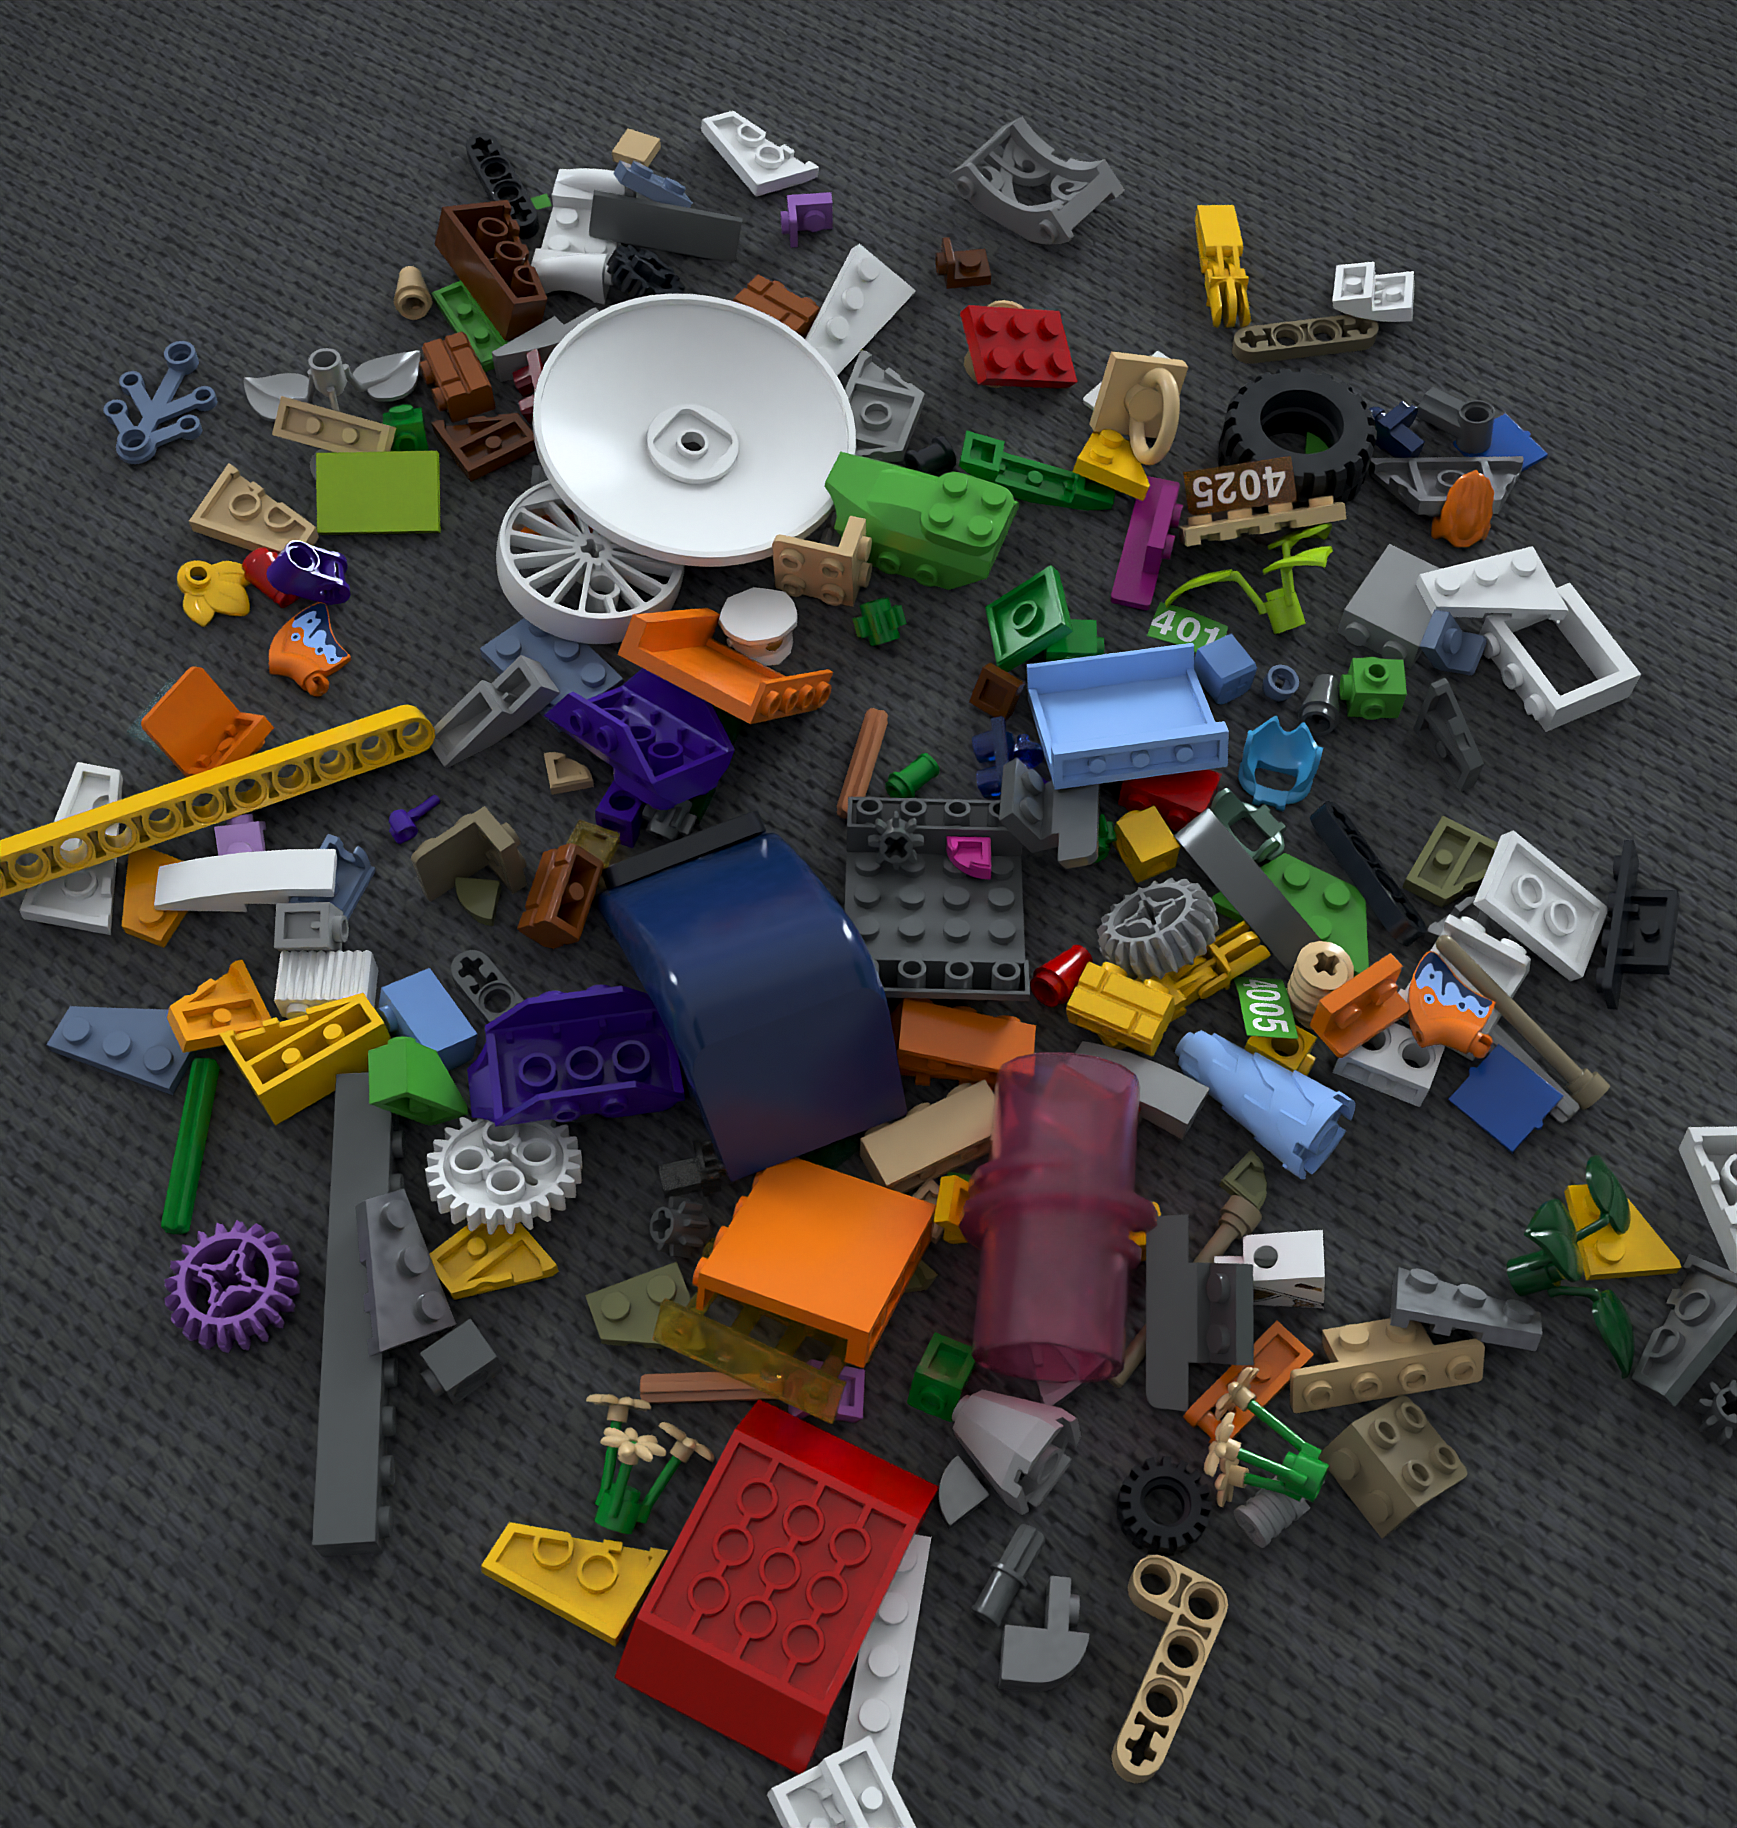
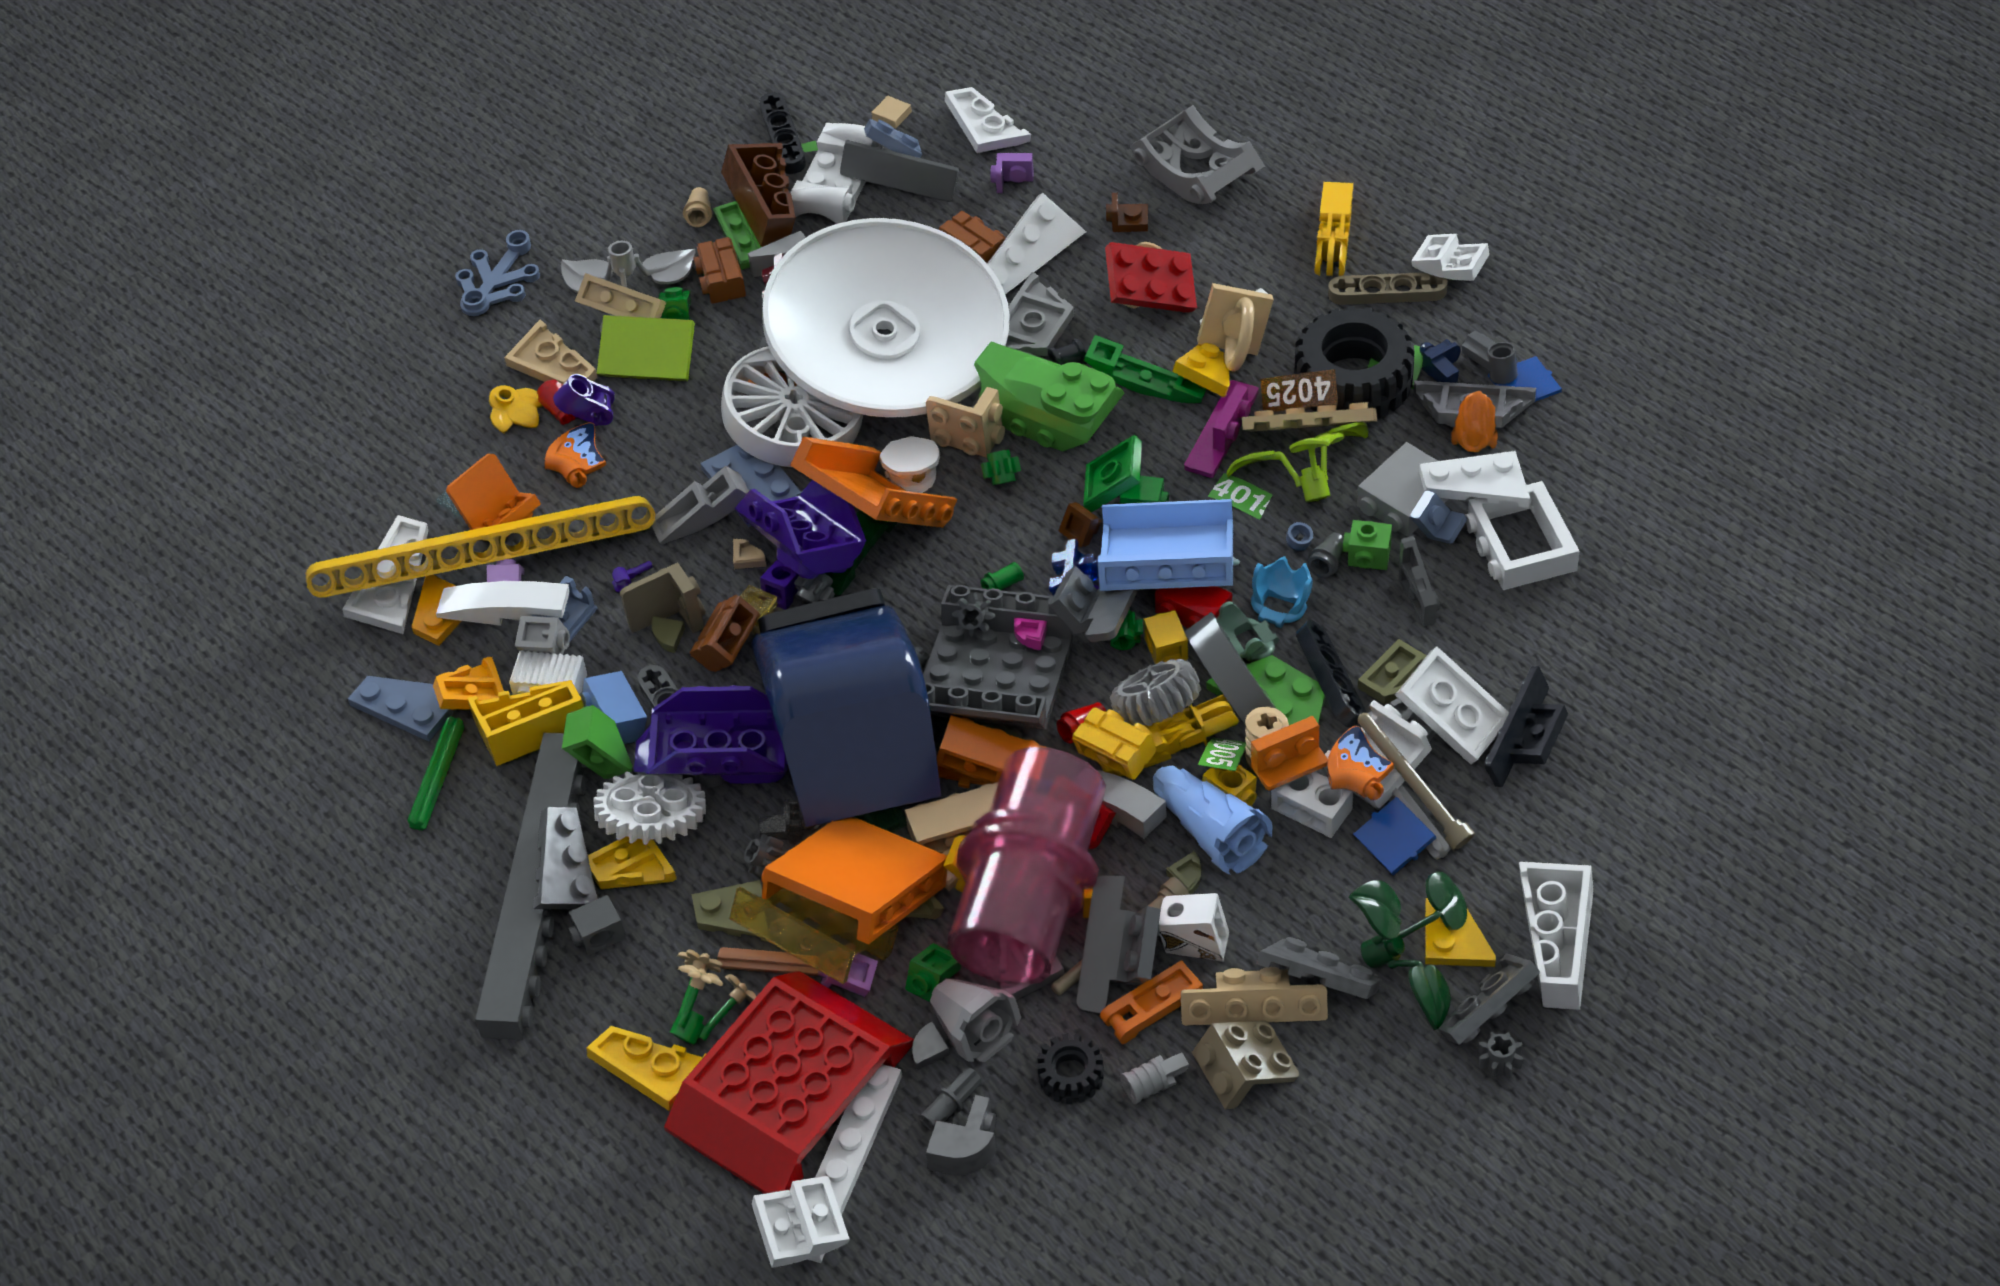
camera: 15 degrees right, 10 degrees down
(220, 1322) = (447, 852): medium lavender gear -> none
(486, 442) = (731, 319): reddish brown wing -> none
(642, 273) = (873, 203): black gear -> none
(863, 758) = (971, 559): nougat axle -> none
(1162, 1674) = (1040, 1169): tan beam -> none
(1224, 669) = (1256, 522): medium blue piece -> none
(1298, 1475) = (1165, 1048): plant -> none

